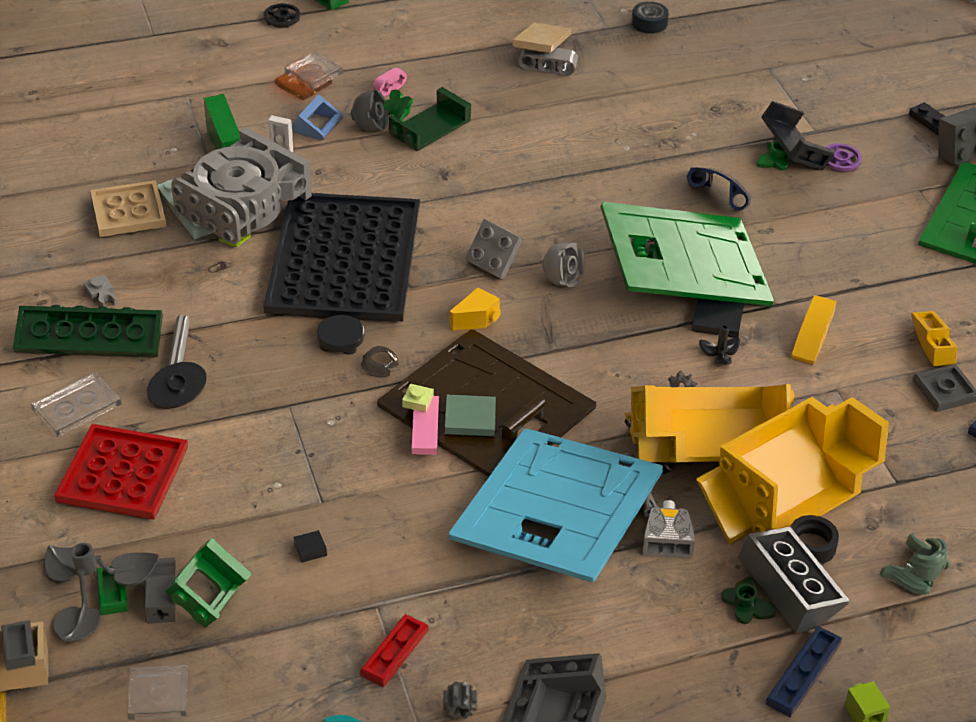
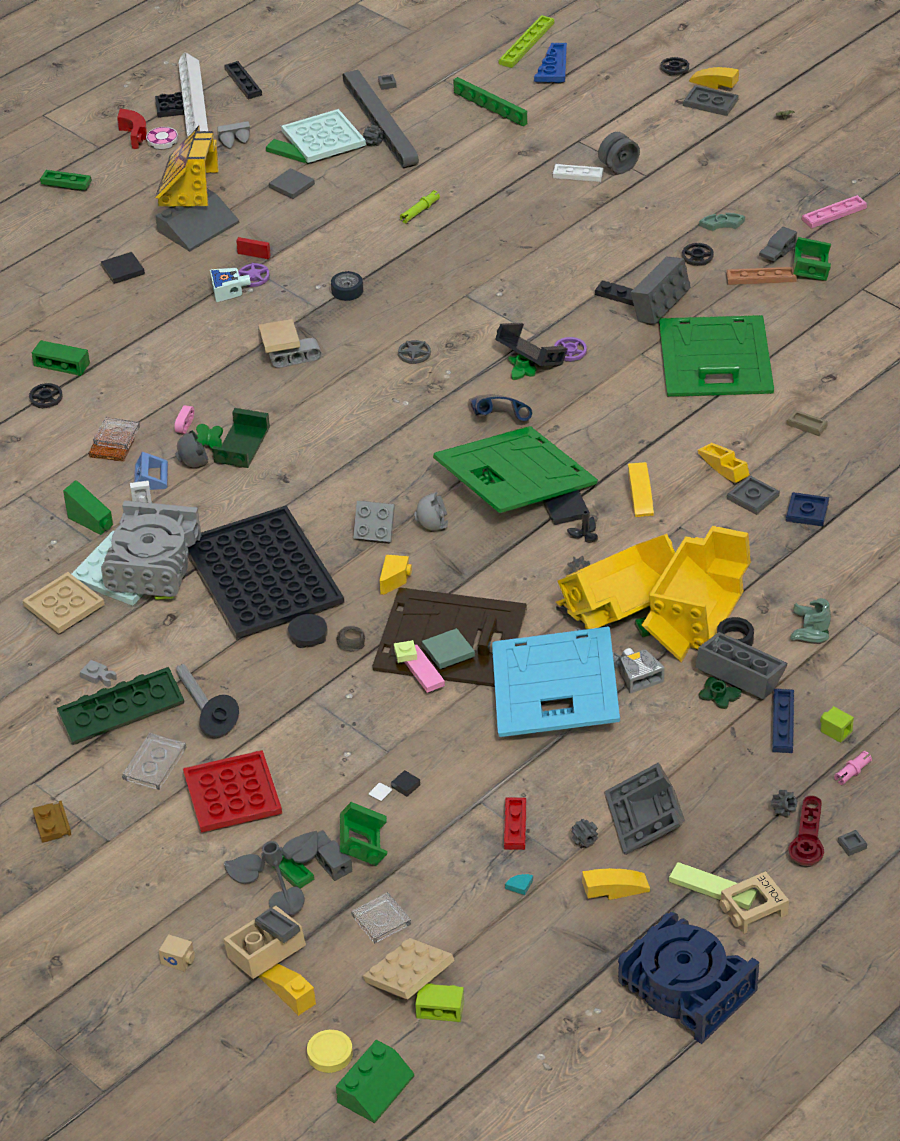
camera: 25 degrees left, 0 degrees up
(278, 543) = (380, 791): none -> white sticker
(672, 102) = (414, 351): none -> dark grey wheel

